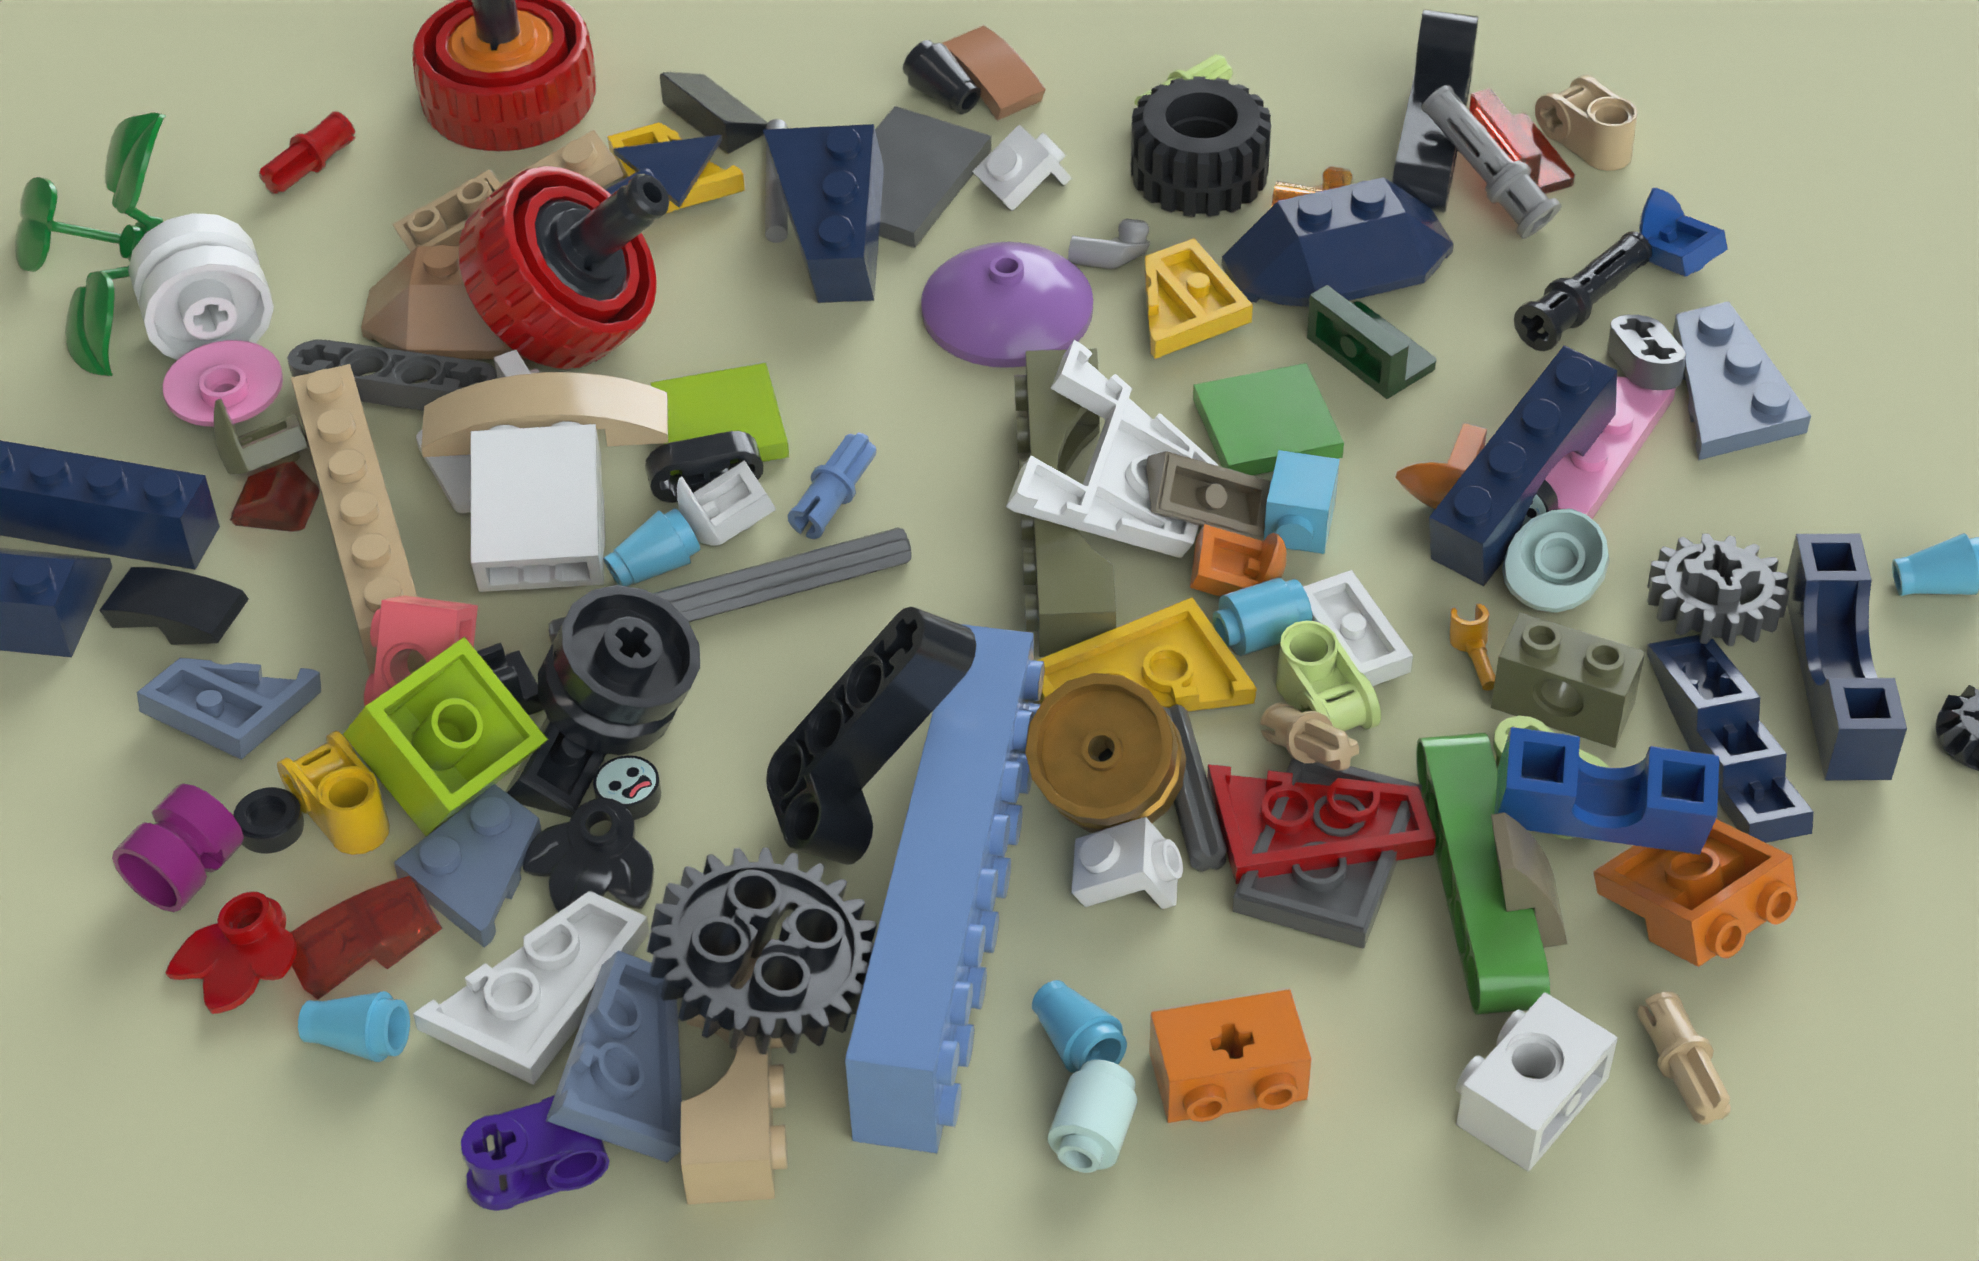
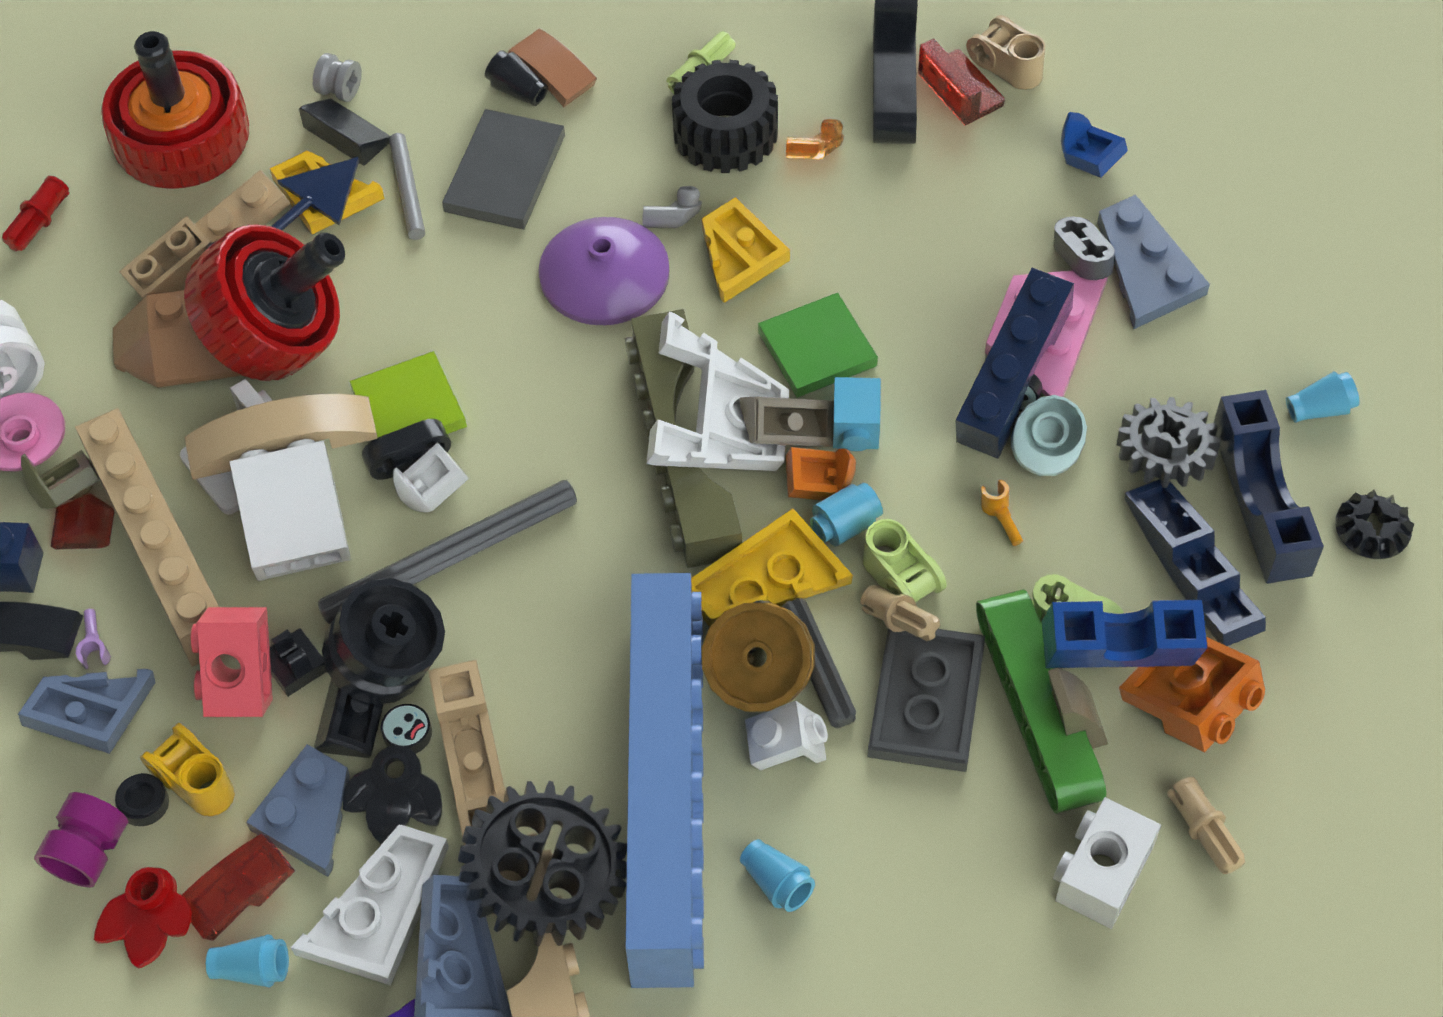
camera: 10 degrees left, 10 degrees up
(251, 631) = (91, 641): none -> lavender hand
(393, 371) = (200, 404): dark grey beam -> none
(444, 735) = (265, 719): lime slope -> none
(653, 549) = (383, 525): medium azure cone -> none
(703, 790) = (467, 738): none -> tan slope
(716, 49) = (337, 77): none -> light grey wheel
(832, 485) = (506, 449): medium blue axle -> none
(834, 203) = (458, 207): dark blue wedge -> none
(858, 727) = (572, 669): black beam -> none
(1021, 166) = (592, 150): white bracket -> none
(1093, 1116) = (802, 944): light aqua brick -> none
(1229, 1056) = (905, 860): orange brick -> none
(1247, 804) = (863, 672): red wing -> none
(1346, 237) = (844, 190): dark blue wedge -> none
(1359, 627) = (913, 507): white plate -> none
(1366, 343) = (879, 267): dark green panel -> none
(1433, 480) = (957, 383): orange plate -> none
(1505, 179) = (958, 115): light grey pin -> none
(1567, 679) = (1074, 534): olive brick -> none
(1570, 300) = (1014, 224): black pin -> none

